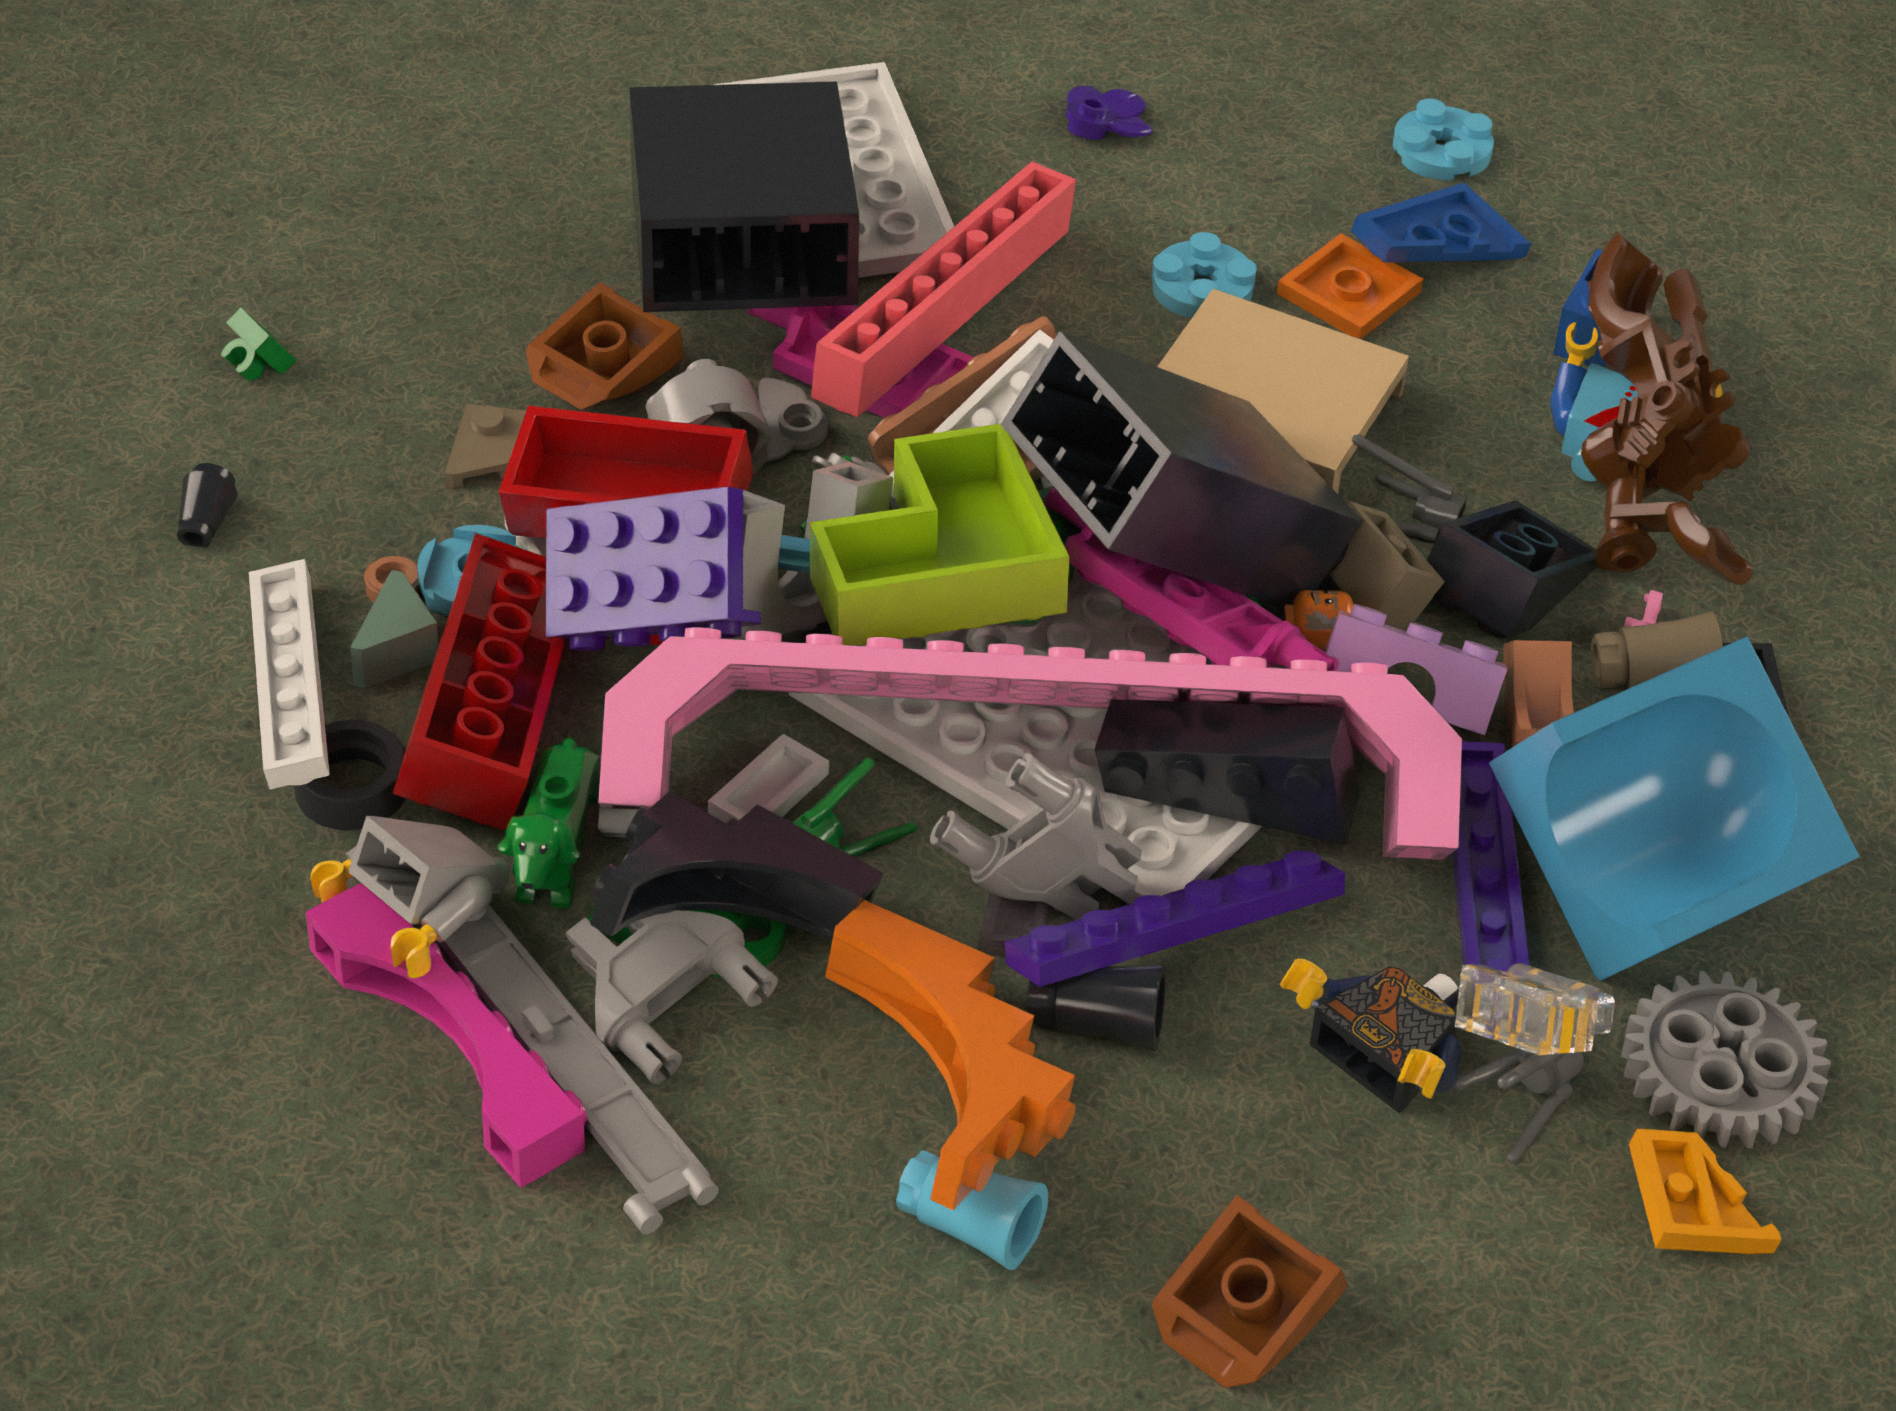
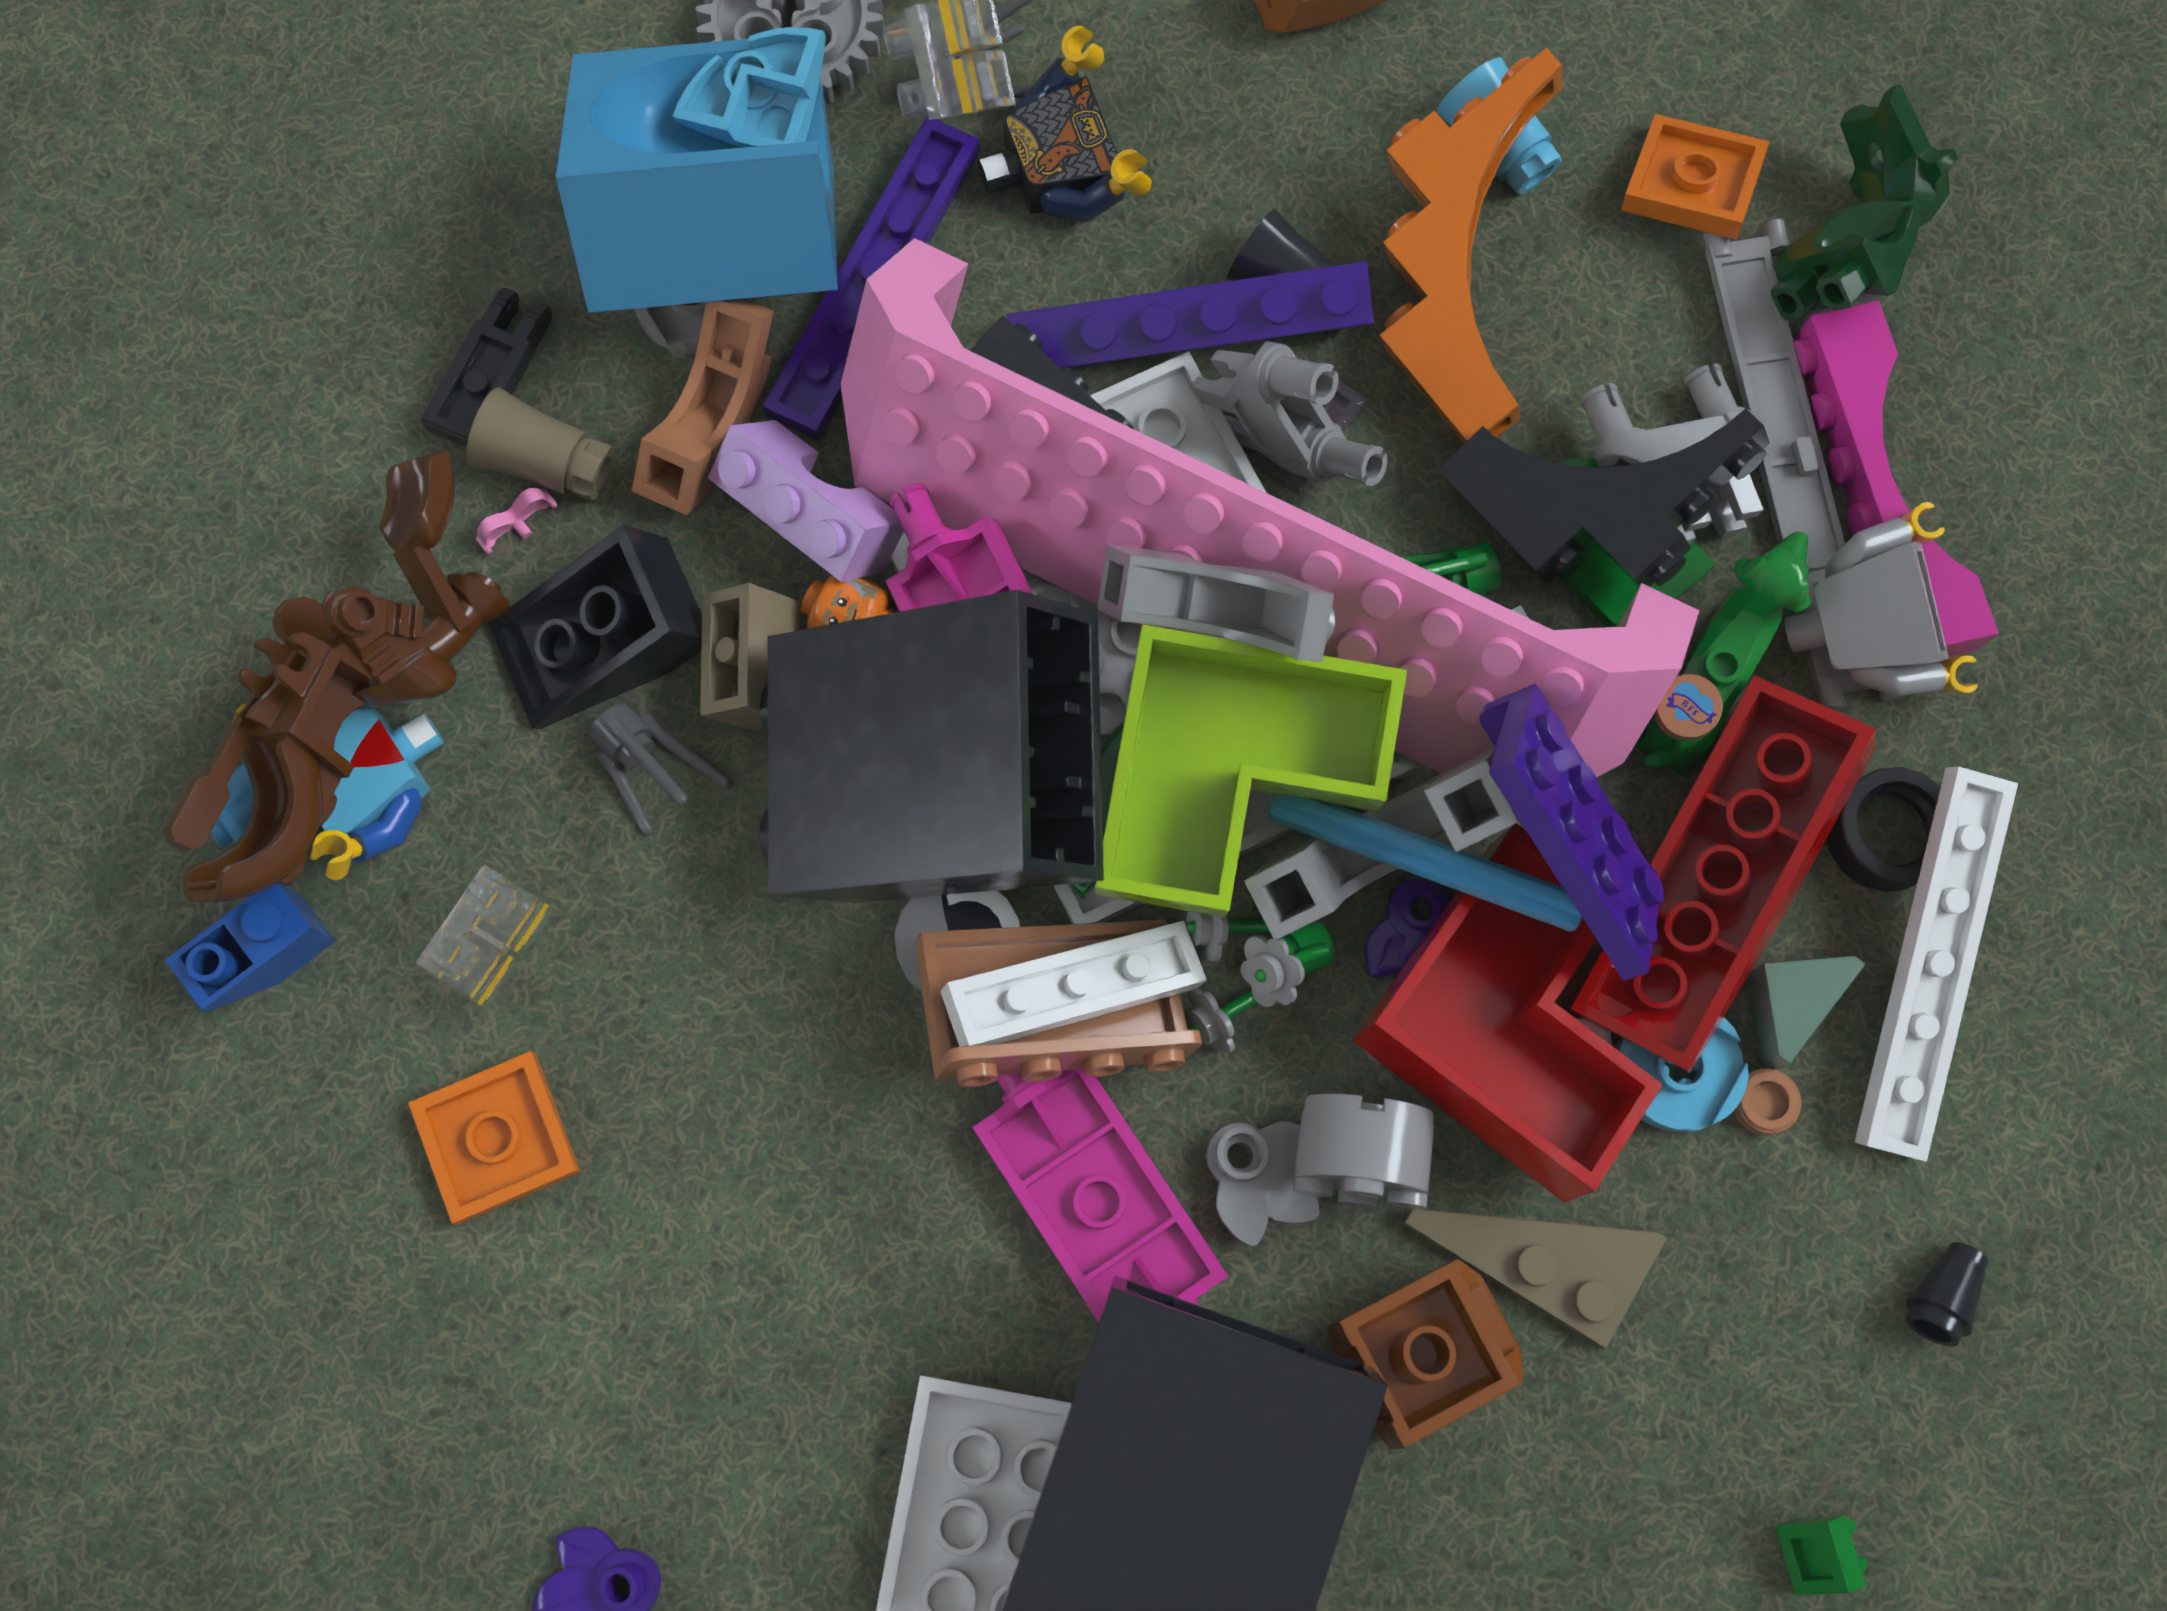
camera: 155 degrees left, 30 degrees up
(552, 1171) = (1867, 245): none -> dark green hips
(575, 745) = (1689, 708): none -> nougat tile
(751, 1234) = (1695, 176): none -> orange tile
(941, 289) = (992, 1260): coral brick -> none
(1065, 603) = (1217, 601): none -> light grey arch
(1201, 256) = (688, 1241): medium azure plate -> none
(1298, 374) = (697, 975): tan panel -> none
(1440, 227) = (335, 1172): blue wing -> none
(1442, 359) = (478, 932): none -> clear hips
(1467, 135) = (176, 1348): medium azure plate -> none
(1675, 878) = (760, 92): none -> medium azure brick

